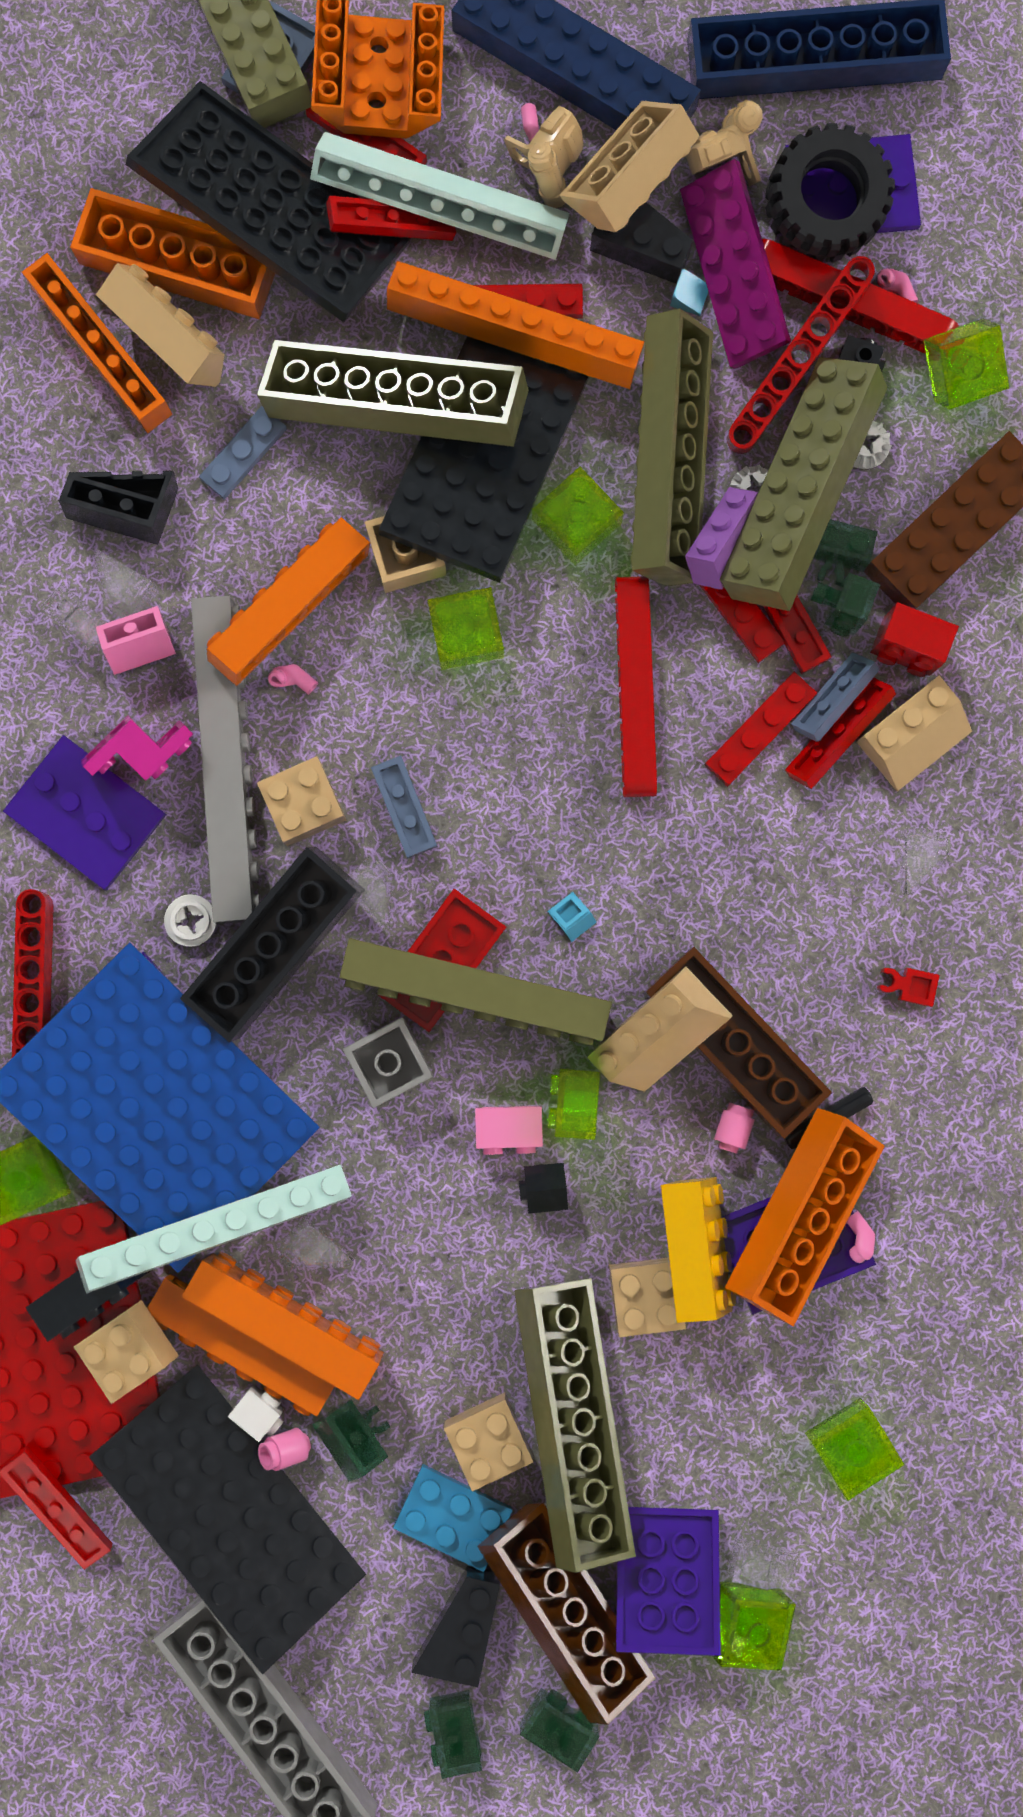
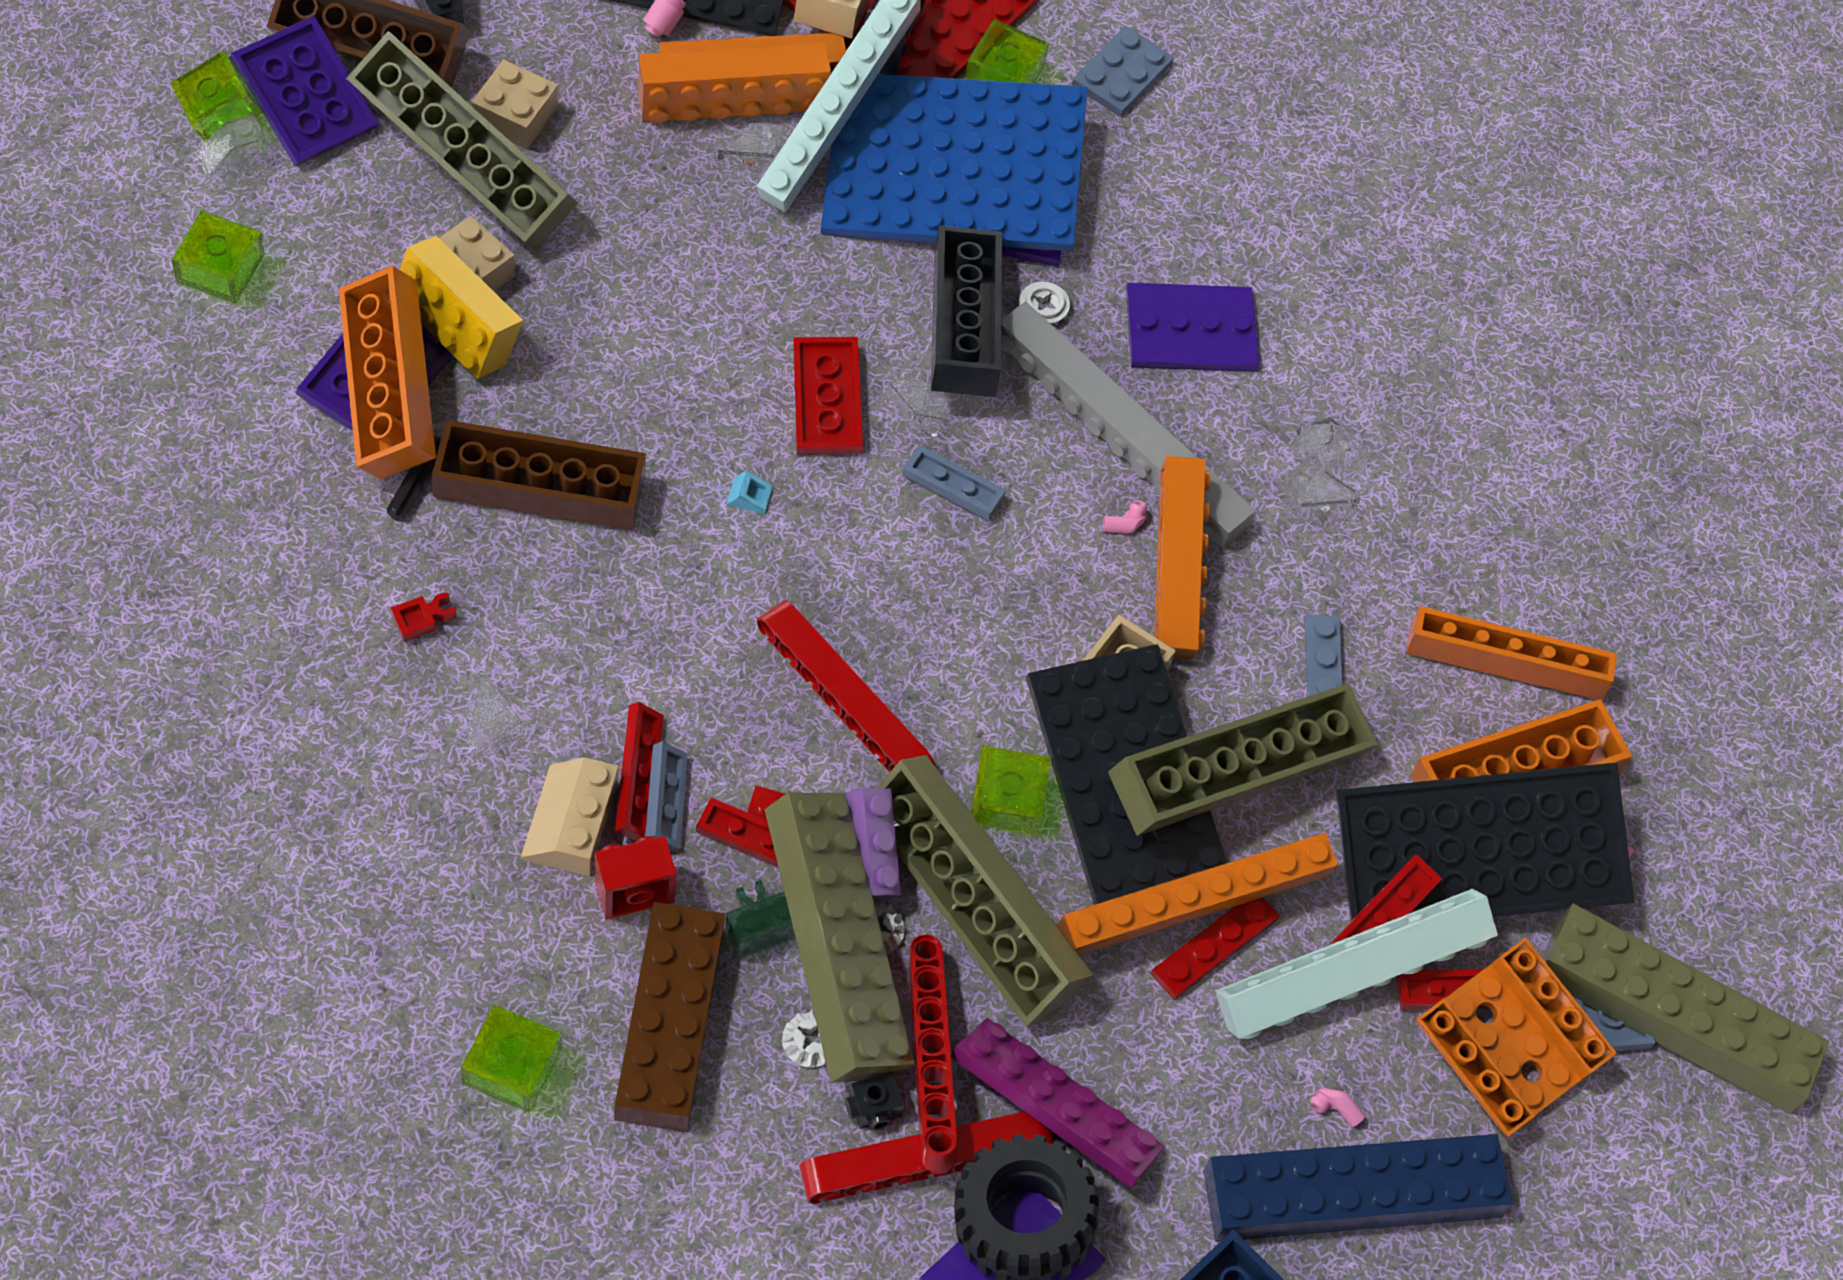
camera: 135 degrees right, 25 degrees down
(23, 957) = (1129, 199): red beam -> none
(123, 503) = (1374, 548): black wedge -> none
(135, 640) = (1268, 457): bright pink brick -> none
(138, 749) = (1192, 377): dark pink bracket -> none
(162, 325) = (1471, 687): tan slope -> none
(258, 1413) = (703, 23): white brick -> none
(301, 801) = (1036, 430): tan brick -> none
(351, 1439) = (617, 45): clear green brick -> none
(388, 1062) = (806, 293): light grey brick -> none
(450, 1516) = (514, 41): dark azure plate -> none
(466, 628) = (1022, 639): clear neon green brick -> none
(475, 990) = (783, 370): olive brick -> none
(508, 1128) = (674, 311): bright pink brick -> none
(544, 1188) = (611, 286): black brick -> none
(550, 153) = (1299, 1073): tan piece -> none
(574, 1103) = (636, 349): clear neon green brick -> none
(631, 164) = (1220, 1089): tan slope -> none
(646, 243) = (1163, 1066): black wedge -> none
(660, 1033) = (612, 427): tan slope -> none
(689, 293) = (1077, 1057): medium azure slope -> none
(729, 142) = (1155, 1203): tan piece -> none
(734, 1128) = (489, 412): bright pink brick -> none
(760, 728) = (710, 735): red plate -> none
(848, 604) = (717, 868): clear green brick -> none
(865, 1238) = (321, 397): bright pink arm -> none
(897, 283) = (897, 1208): bright pink arm -> none
(966, 363) = (775, 1154): clear neon green brick -> none

